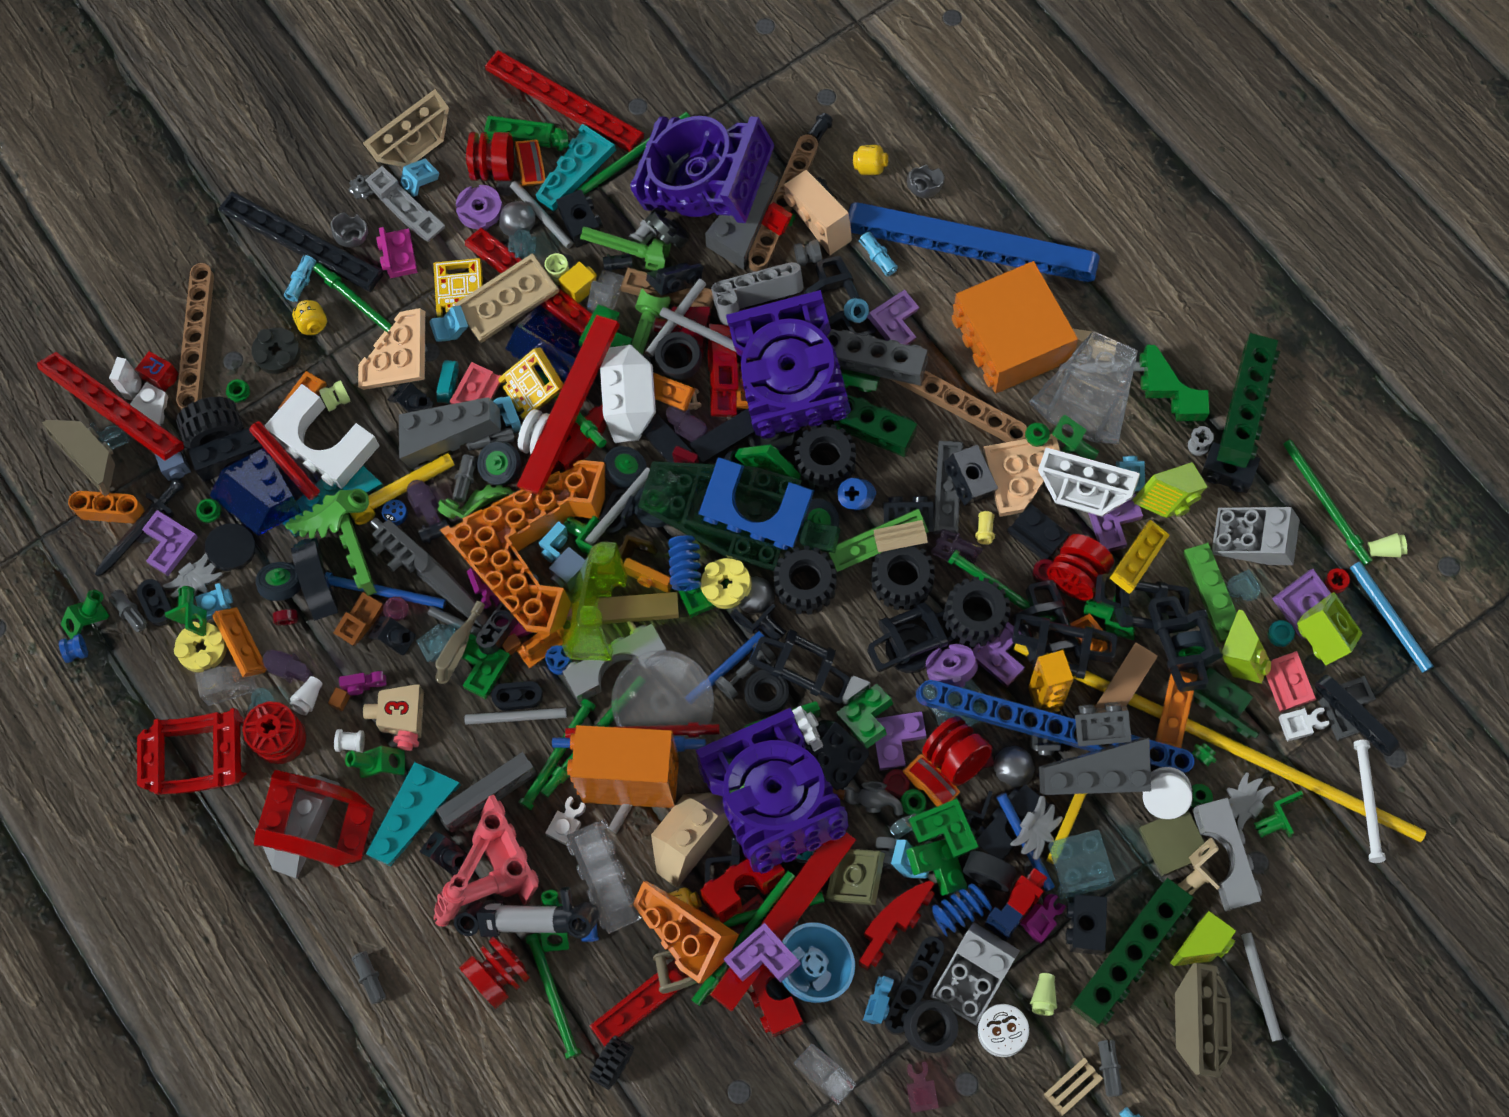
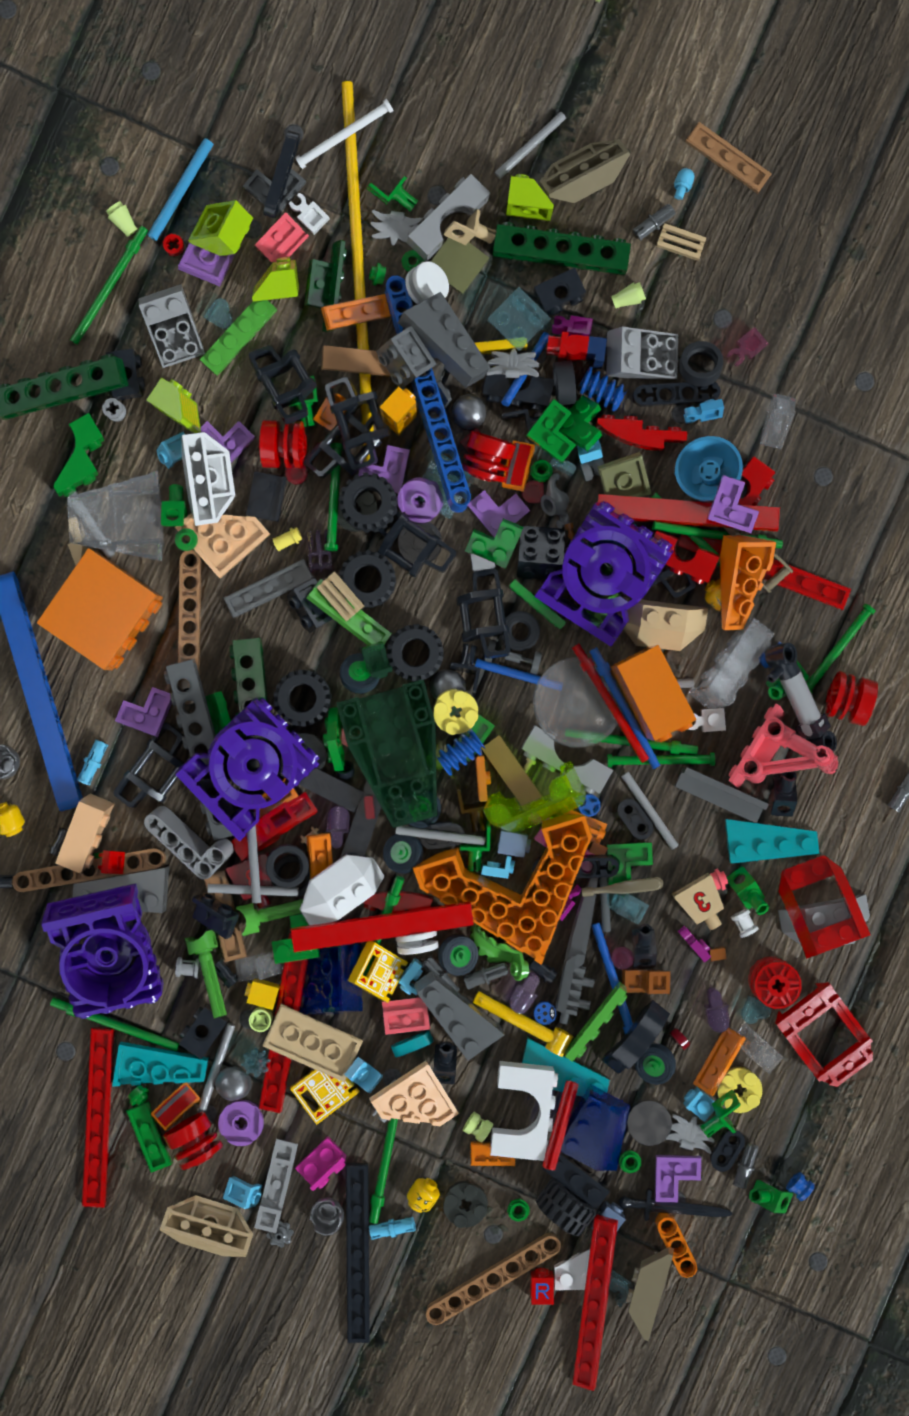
camera: 130 degrees left, 20 degrees up
(125, 378) = (566, 1305): white plate -> none
(305, 697) = (731, 980): white cone -> none
(329, 514) = (581, 1060): bright green plant -> none
(611, 1062) = (862, 574): black tyre -> none
(669, 230) = (173, 948): pearl dark grey plate -> none
(674, 168) = (115, 977): black bar -> none
(721, 506) = (388, 694): blue arch -> none
(807, 252) = (126, 820): dark grey wheel -> none
(807, 724) = (534, 579): white plate -> none
(846, 494) = (321, 653): blue piece -> none
(849, 310) = (158, 754): medium azure piece -> none
(971, 462) = (252, 561): black brick -> none
(1003, 1030) = (672, 311): white head -> none
(1139, 556) = (247, 402): yellow tile -> none
(1179, 624) = (324, 328): black bar -> none
(1189, 643) = (298, 327): black wheel -> none
(1281, 633) = (243, 266): teal tile -> none

